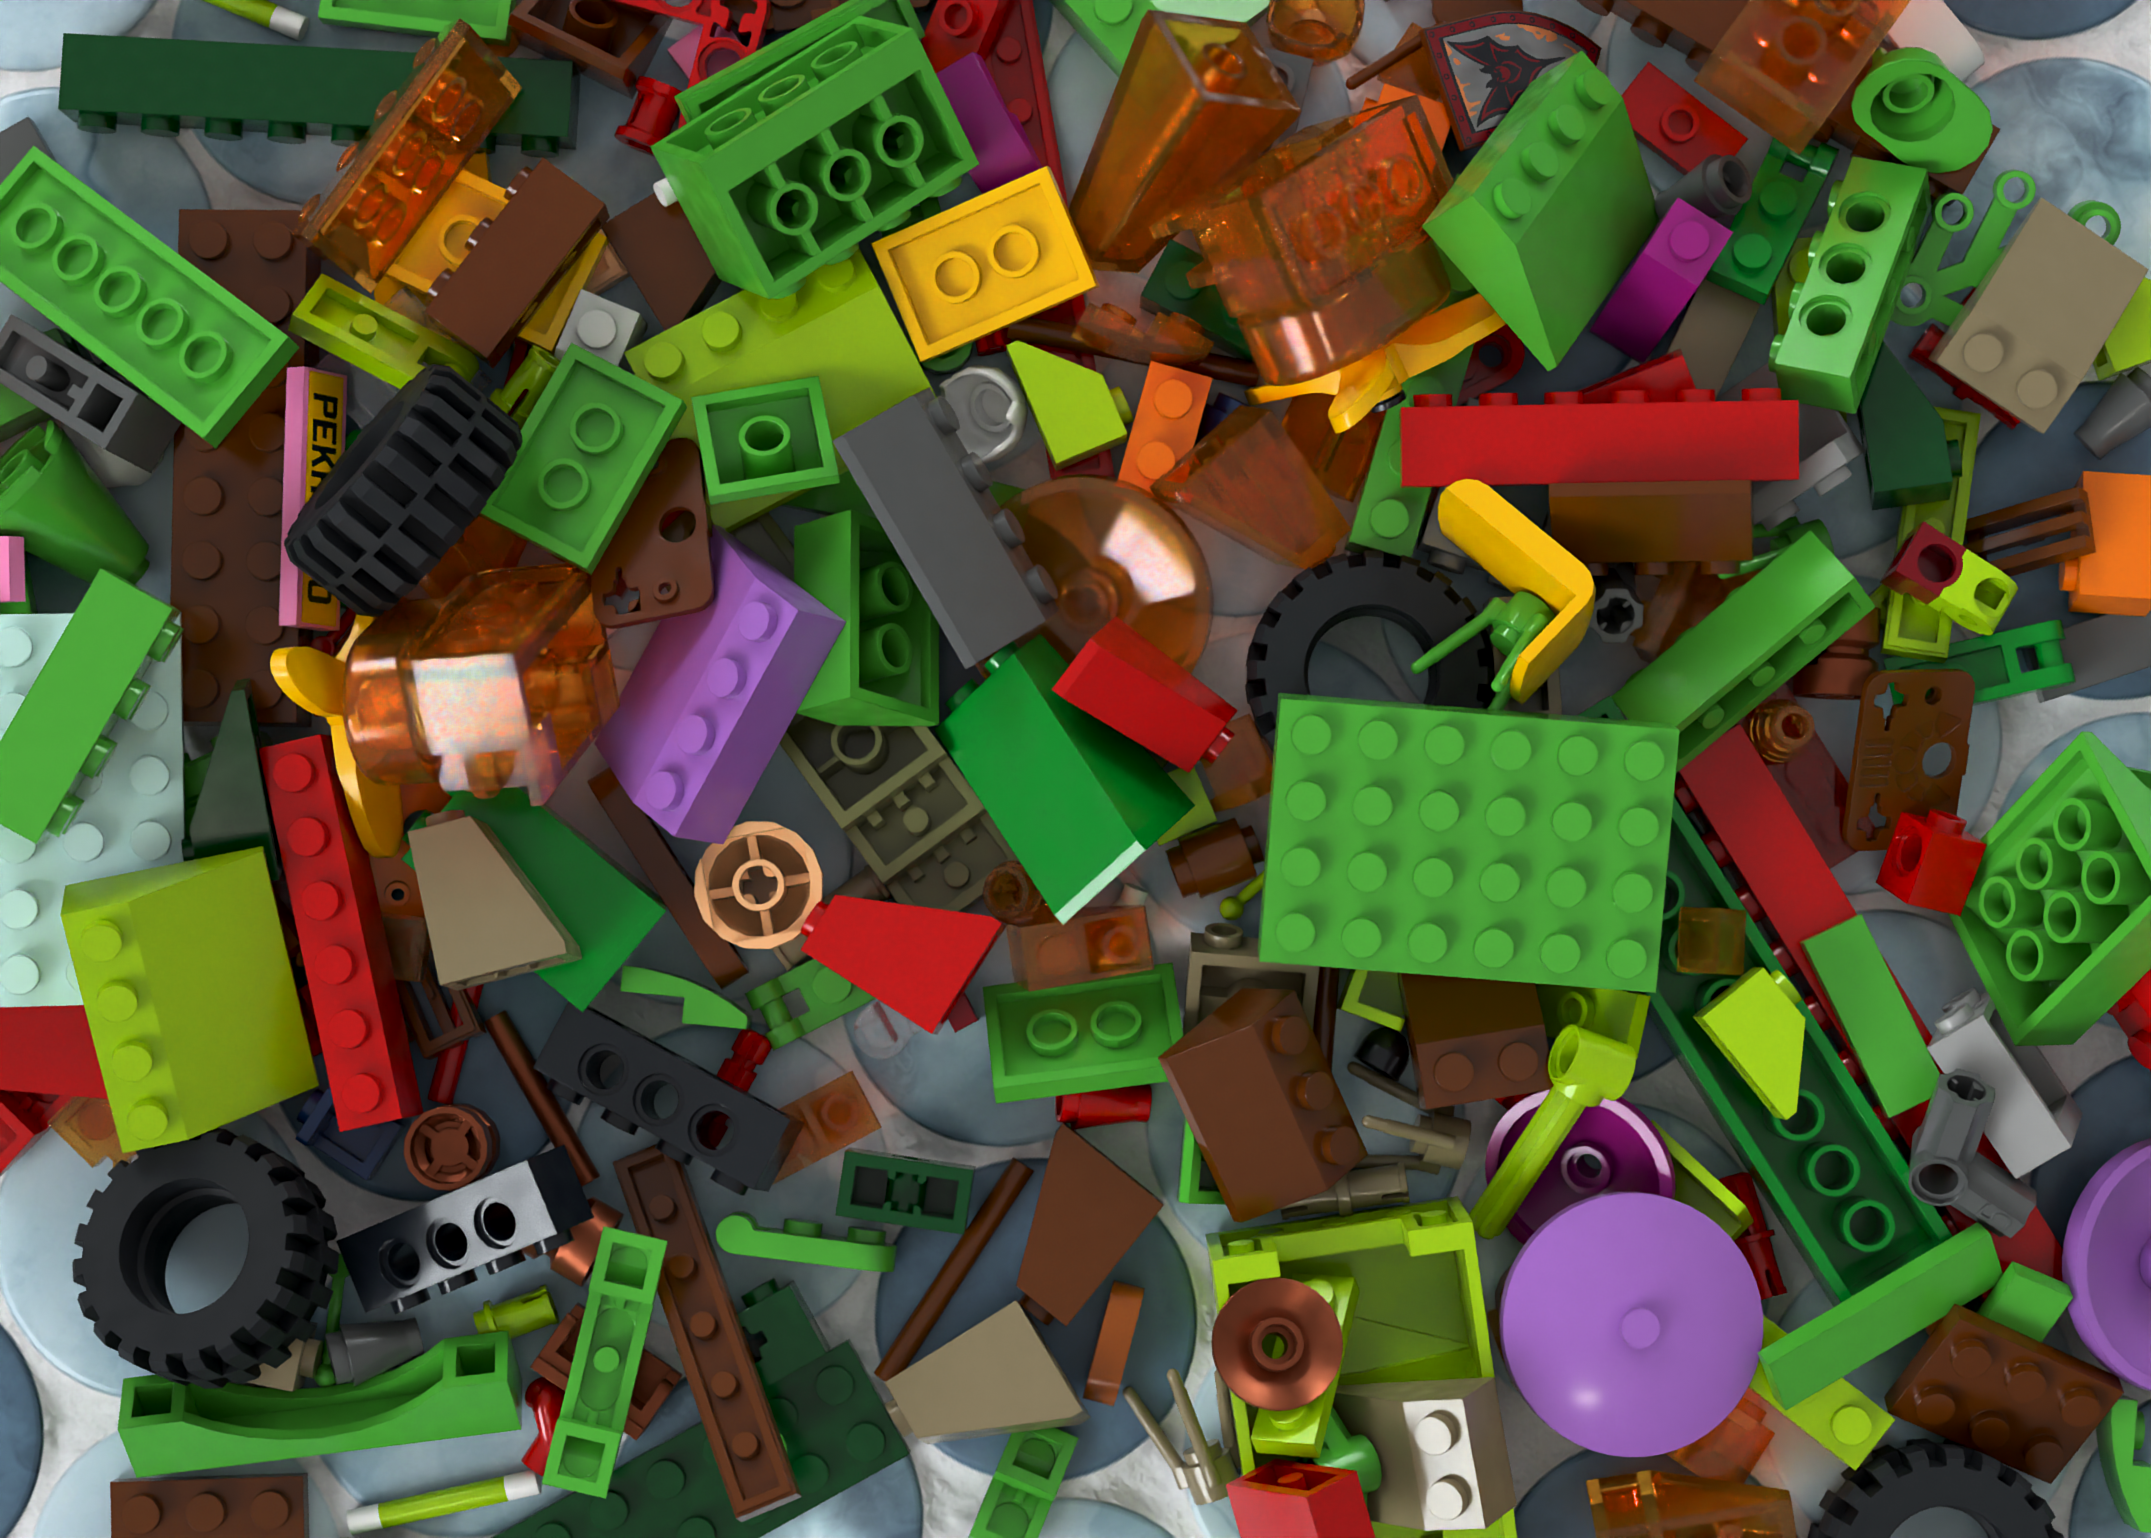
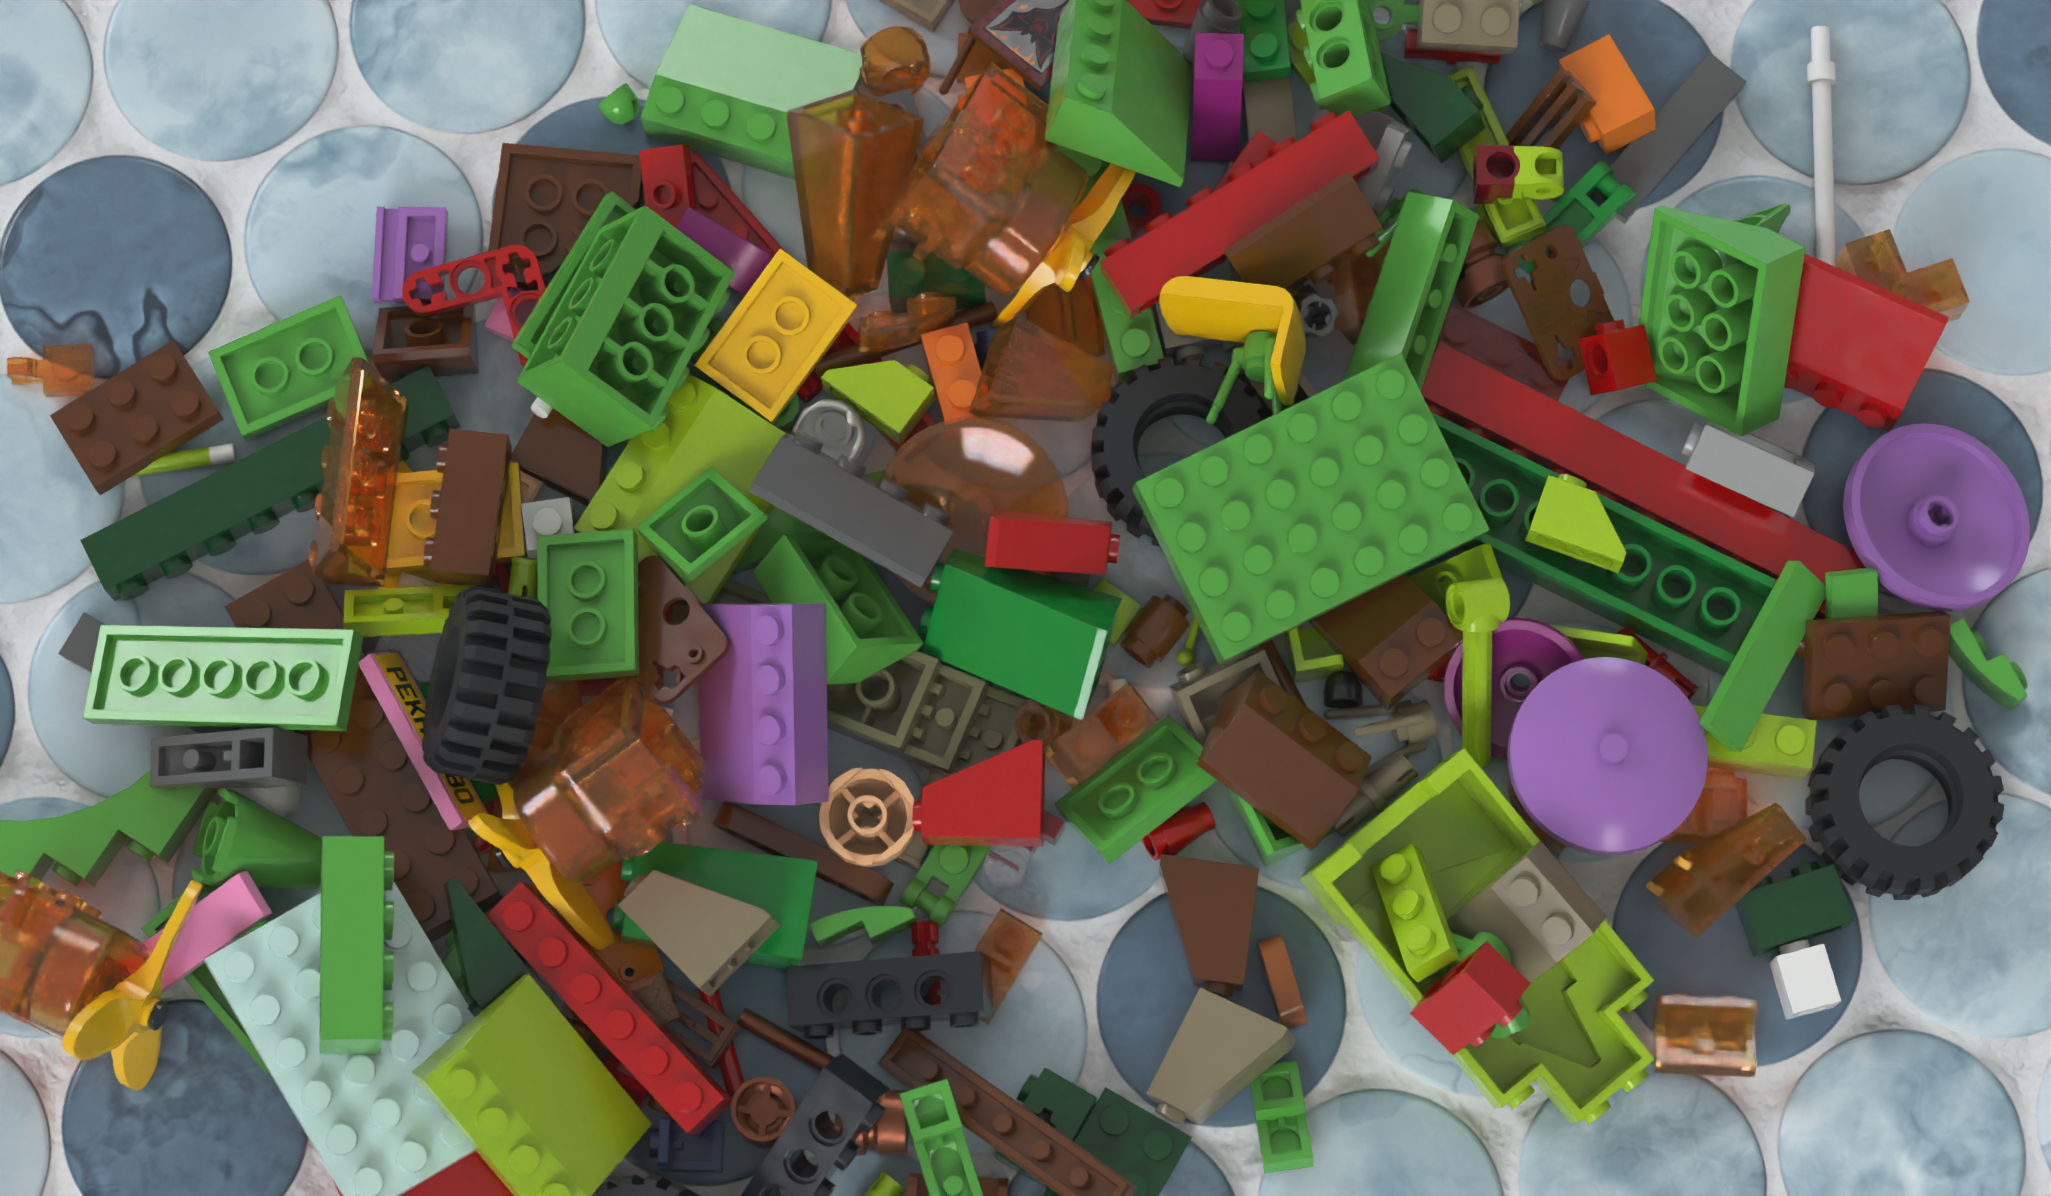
camera: 30 degrees left, 10 degrees down
(650, 115) = (500, 374): red bush -> none
(805, 1243) = (1037, 1038): bright green plate -> none
(905, 1190) = (1084, 960): dark green brick -> none
(954, 1270) = (1147, 999): reddish brown bar -> none
(1207, 1463) = (1395, 1024): dark tan plant -> none
(1241, 770) = (1137, 566): clear orange tile -> none
(1309, 1338) = (1391, 880): copper dish -> none
(1711, 941) = (1506, 484): clear orange slope -> none
(1768, 734) = (1468, 338): clear orange cone -> none
(1872, 1015) = (1640, 473): bright green tile -> none
(1950, 1170) = (1768, 537): dark grey piece -> none

